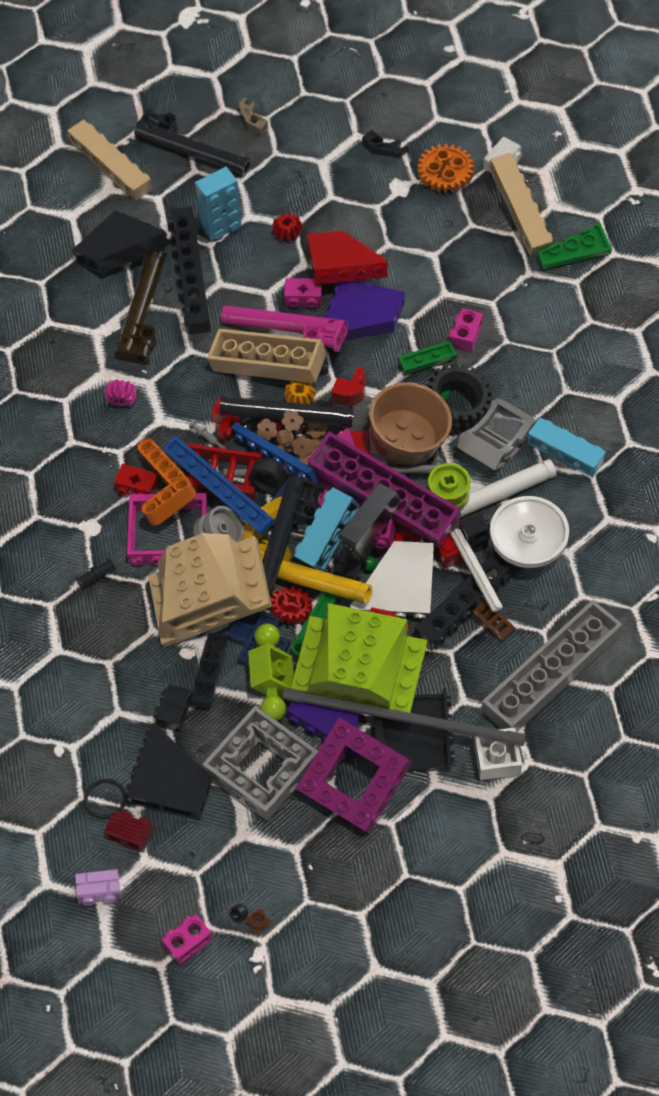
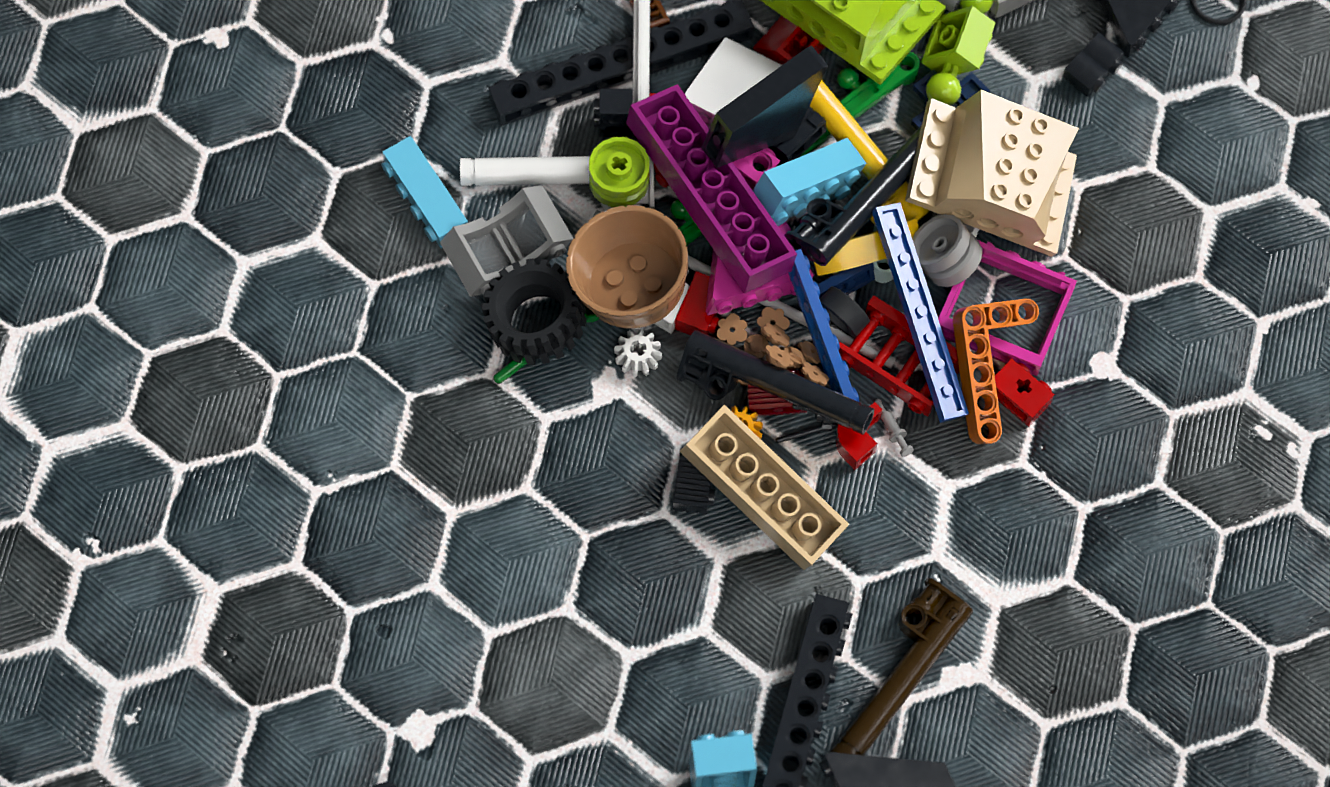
camera: 160 degrees left, 10 degrees up
(95, 573) = (1124, 287): black pin -> none
(120, 393) = (990, 534): dark pink gear -> none
(209, 670) = (1040, 79): black slope -> none
(287, 227) = (634, 727): red gear -> none
(290, 605) = (882, 131): red gear -> none
(302, 293) = (666, 604): dark pink brick -> none
(329, 330) = (663, 487): dark pink piece -> none
(342, 258) = (579, 609): red slope -> none
(349, 392) = (667, 400): red brick -> none
(366, 308) = (591, 524): dark purple slope -> none
(427, 357) = (534, 410): green plate -> none
(445, 168) = (322, 699): orange gear -> none
(464, 333) = (452, 423): dark pink brick -> none
(503, 147) = (240, 699): white brick -> none
(520, 203) = (268, 590): tan brick -> none
(529, 531) = (550, 67): white dish -> none
(586, 245) = (222, 492): green wing -> none

